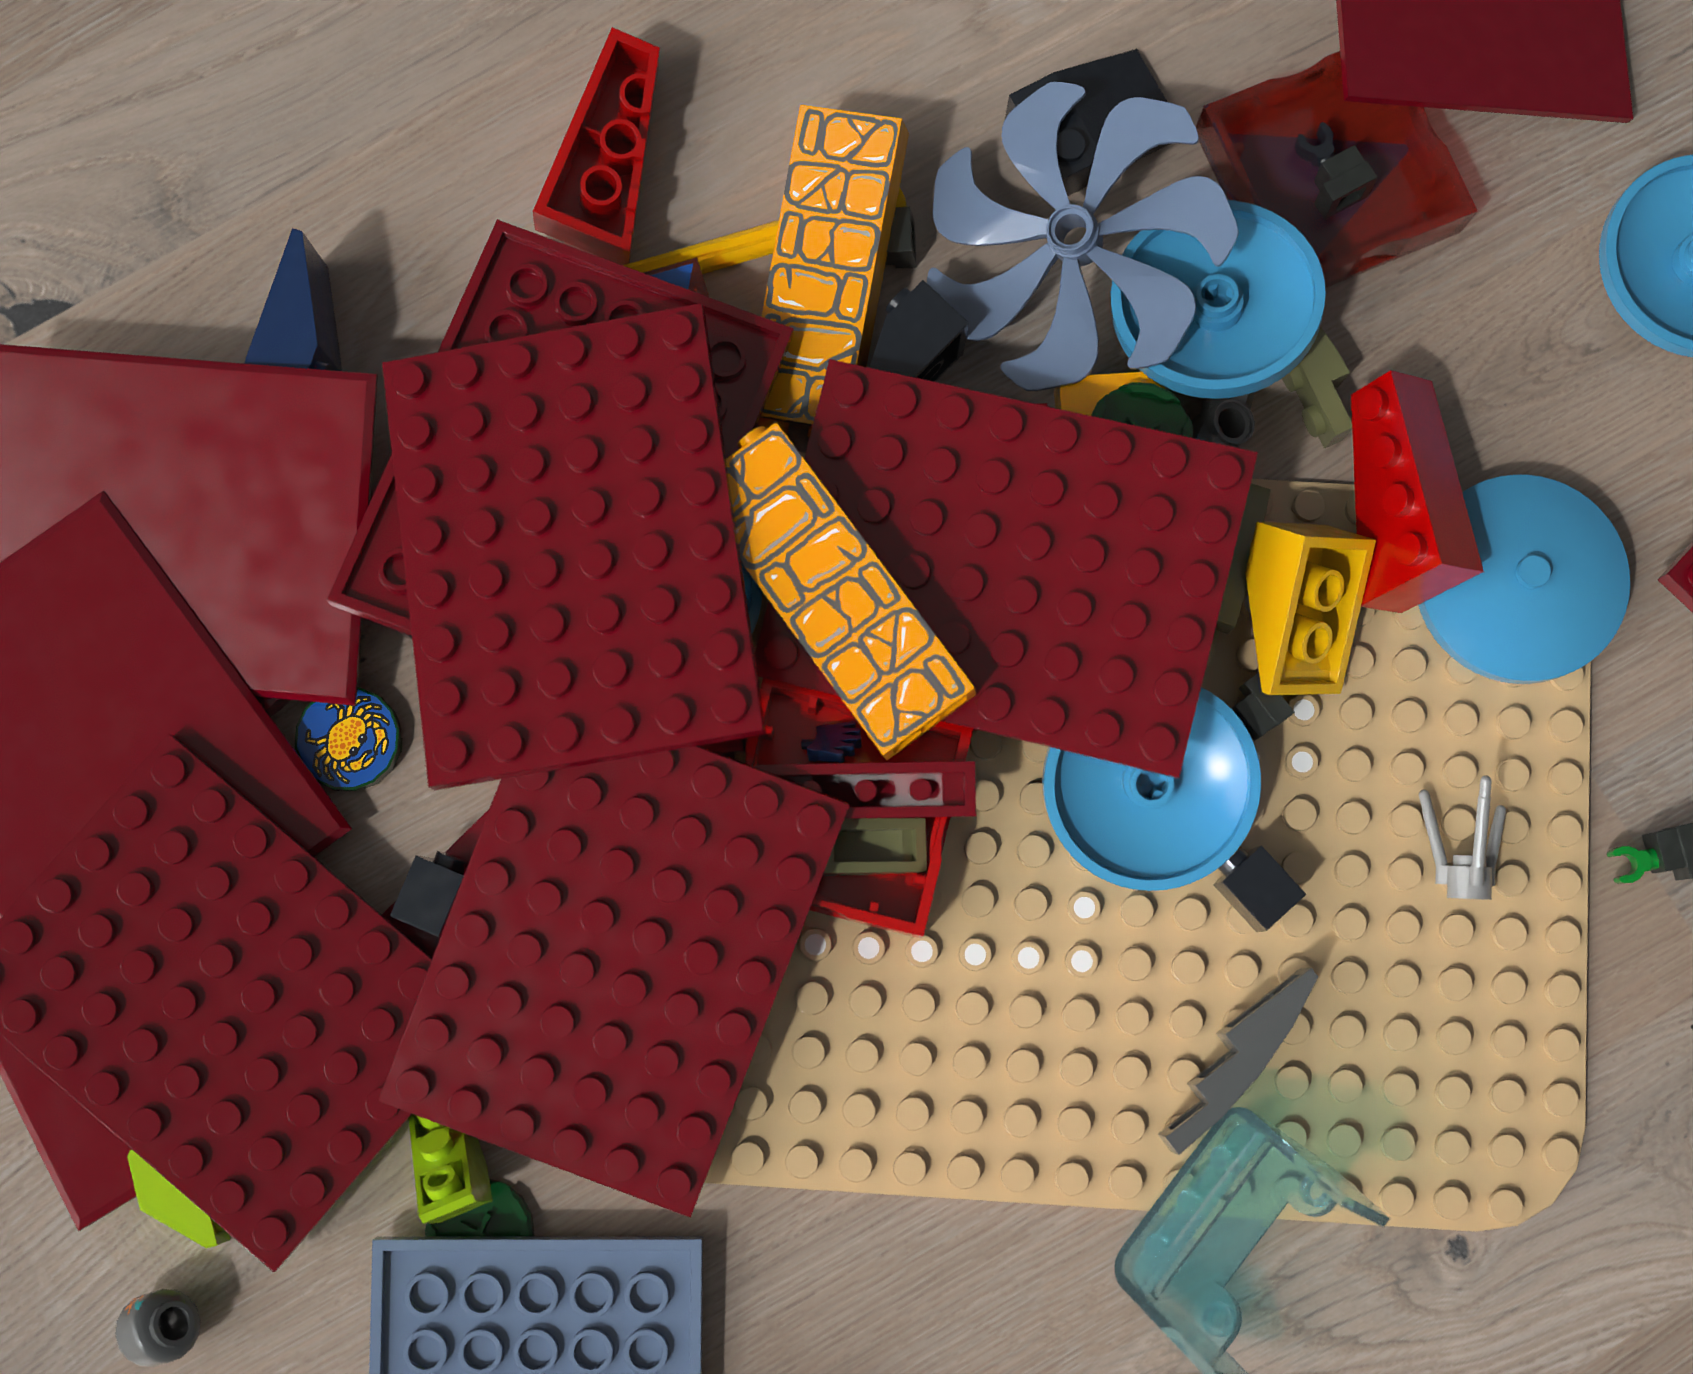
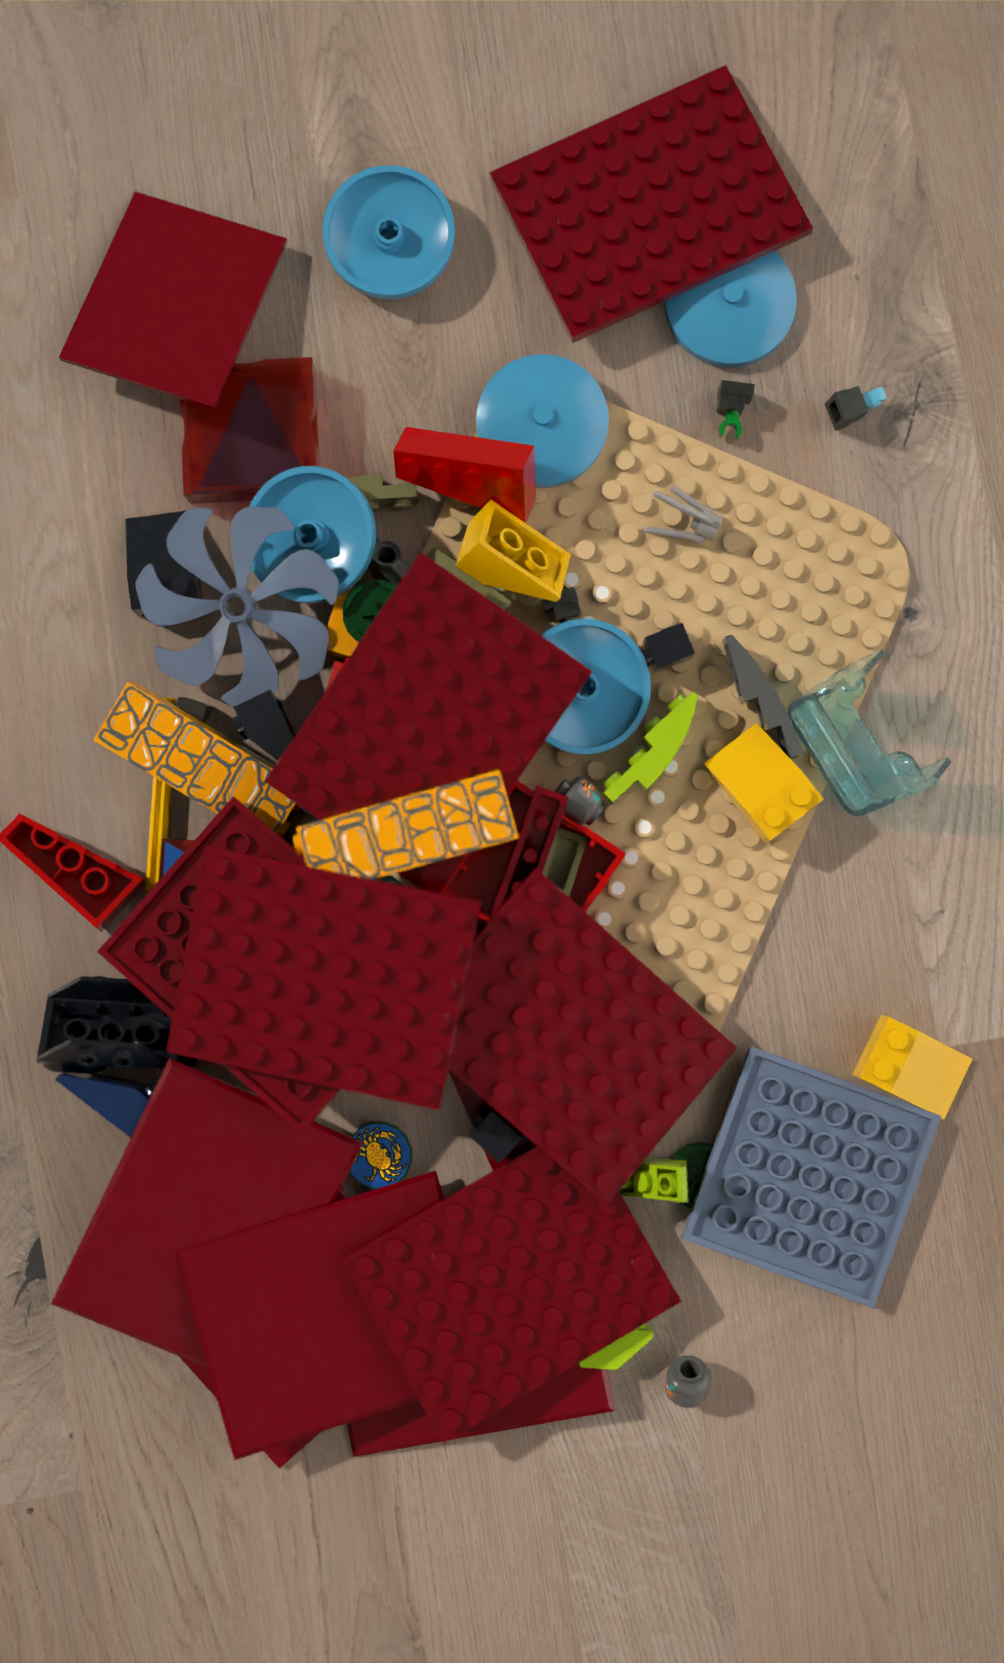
camera: 70 degrees left, 5 degrees up
(393, 267) = (104, 1025): none -> black slope
(833, 742) = (492, 864): dark blue piece -> none
(977, 842) = (583, 802): none -> dark grey head
(1111, 1110) = (763, 782): none -> yellow slope
(1116, 934) = (663, 739): none -> lime slope
(1341, 177) = (257, 429): pearl dark grey piece -> none

